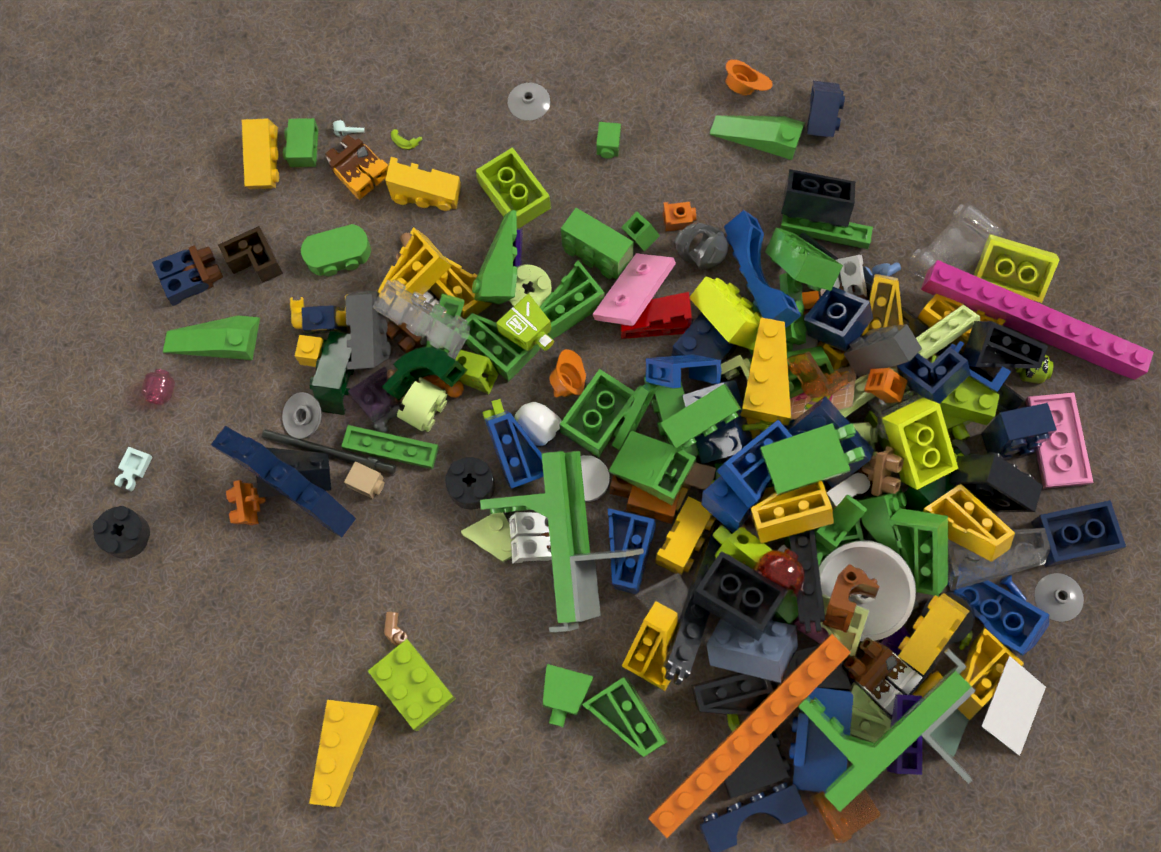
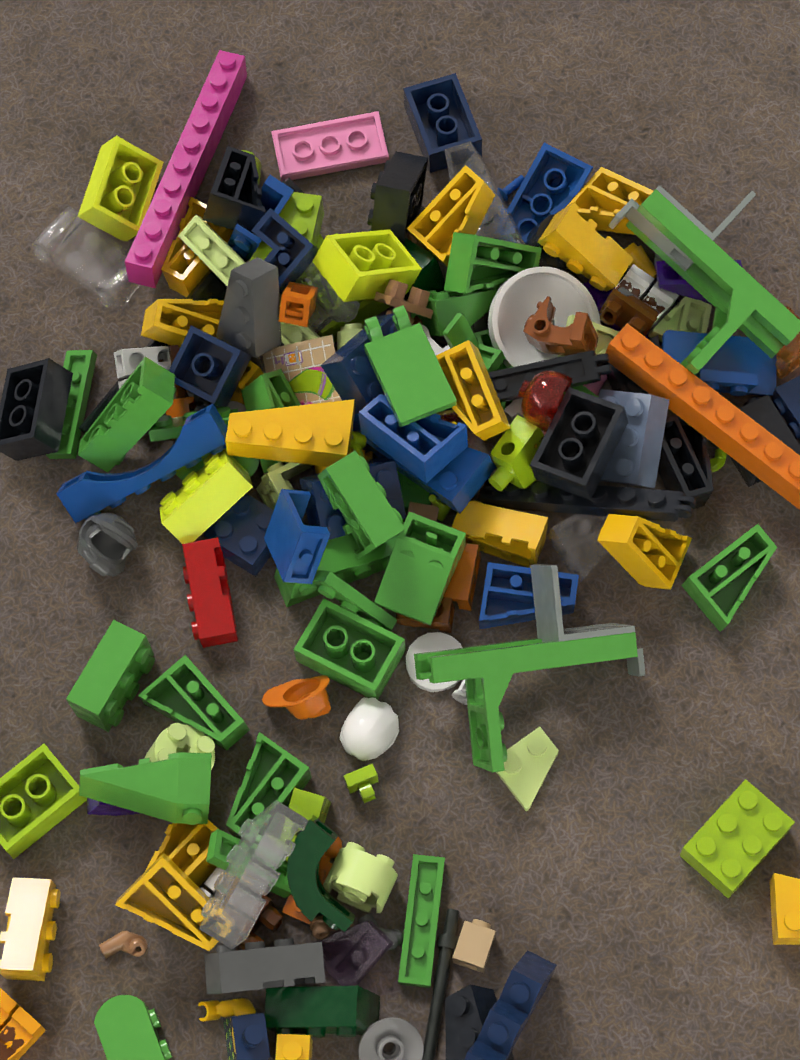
camera: 95 degrees left, 5 degrees down
(392, 631) = (671, 878): medium nougat arm -> none
(459, 476) = (477, 793): black brick -> none
(516, 452) = (416, 744): blue wedge -> none
(526, 325) = (243, 742): lime torso -> none
(530, 537) = (531, 693): white hips -> none
(564, 692) = (713, 653): bright green torso -> none
(634, 289) = (177, 620): bright pink plate -> none
(640, 231) = (87, 624): bright green brick -> none
(673, 220) = (60, 591): orange brick -> none
(812, 378) = (298, 376): clear orange bracket -> none
(881, 269) = (131, 332): medium blue plant -> none
(1014, 706) = (648, 175): white sticker -> none
(1019, 431) = (334, 176): dark blue brick -> none
(1048, 601) = (509, 153): light grey dish -> none

